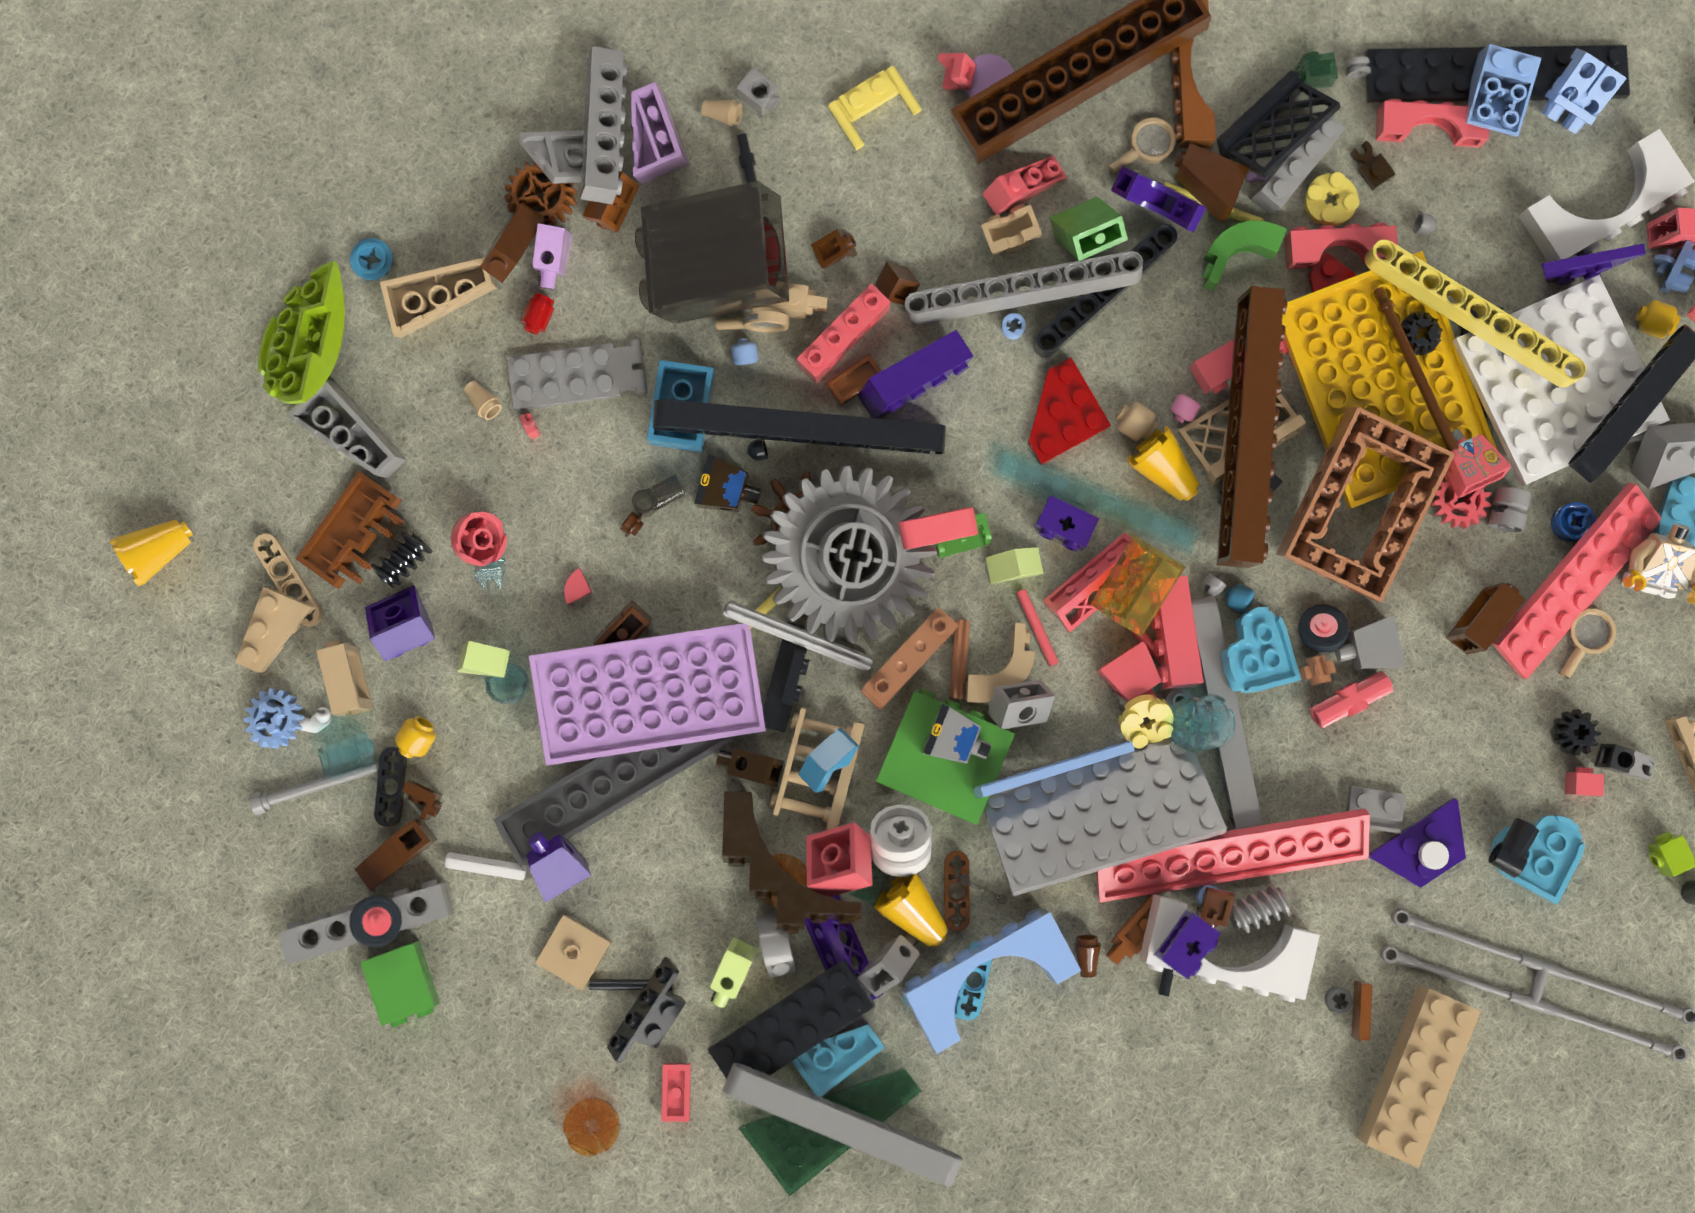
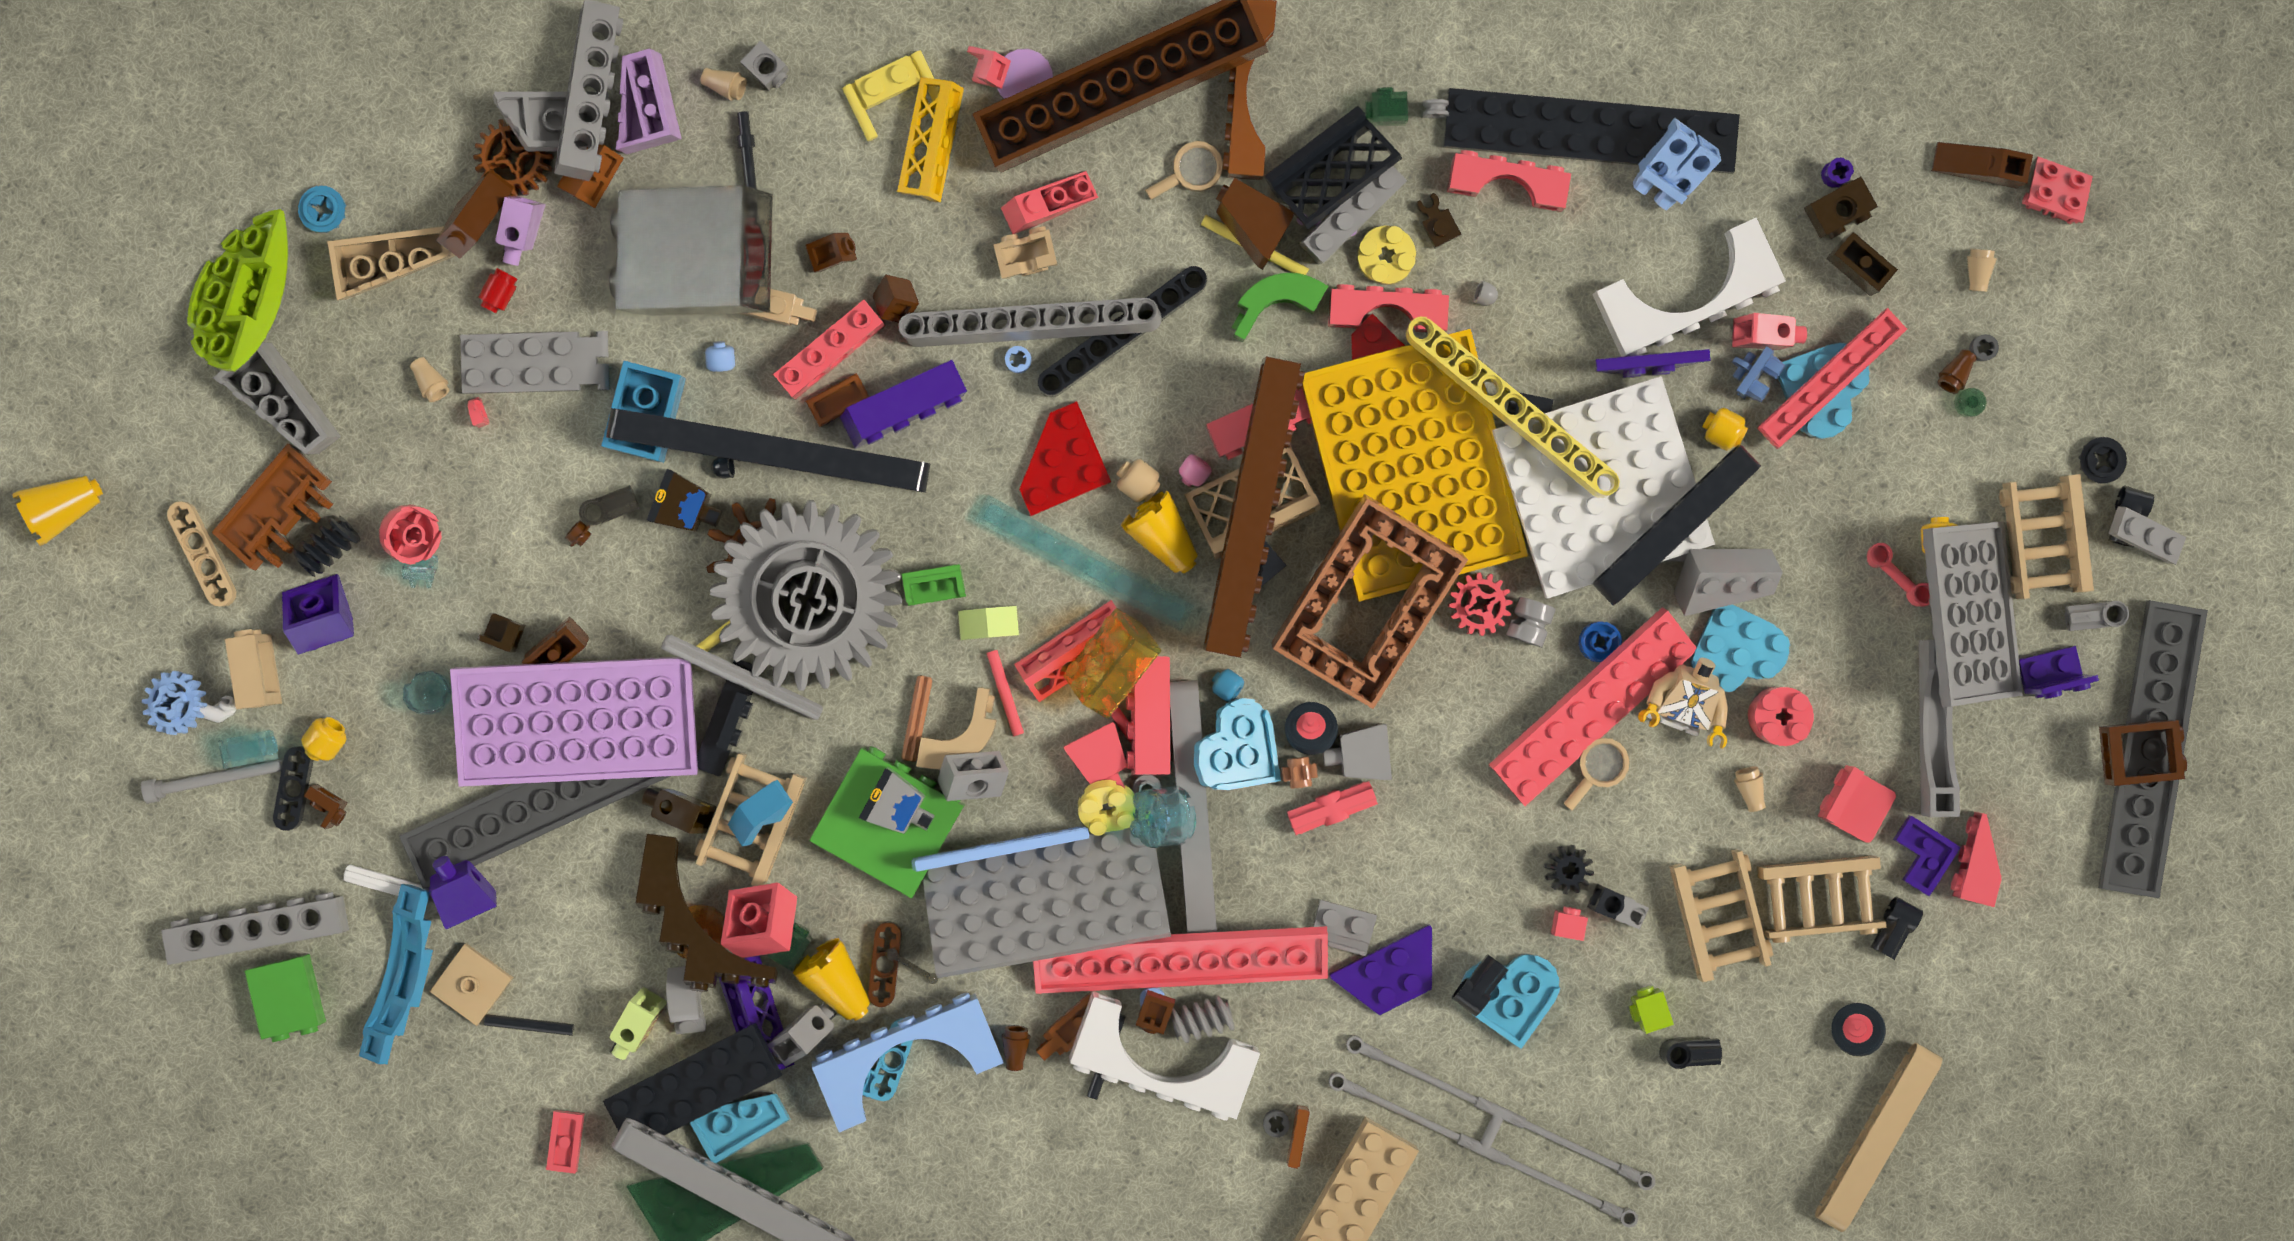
camera: 15 degrees right, 5 degrees up
(271, 625) = (179, 603): tan wing -> none
(375, 921) = (263, 930): black wheel -> none
(395, 853) = (292, 860): reddish brown slope -> none
(482, 660) = (403, 665): yellowish green slope -> none
(509, 950) = (403, 976): none -> dark azure piece
(571, 622) = (502, 633): none -> dark brown panel
(576, 587) = (512, 595): coral tile -> none
(576, 1131) = (456, 1170): clear orange plate -> none
(650, 1014) = (546, 1058): black bracket -> none
(757, 321) = (733, 326): tan piece -> none
(901, 840) = (828, 906): white wheel -> none
(909, 658) = (857, 715): nougat fence -> none
(922, 139) = (940, 140): none -> yellow fence
(938, 528) = (903, 578): coral beam -> none
(1079, 520) = (1037, 570): dark purple brick -> none
(1088, 228) = (1108, 263): bright green brick -> none
(1158, 198) = (1193, 234): dark purple arch -> none
(1174, 950) = (1098, 1054): dark purple brick -> none
(1213, 585) = (1200, 668): light grey hinge -> none
(1386, 306) = (1420, 388): reddish brown bar -> none
(1422, 320) = (1442, 417): black gear -> none
(1433, 855) = (1394, 983): white tile -> none
(1475, 464) = (1492, 569): coral torso -> none
(1485, 618) = (1485, 737): reddish brown window -> none
(1501, 89) = (1583, 158): light blue slope -> none

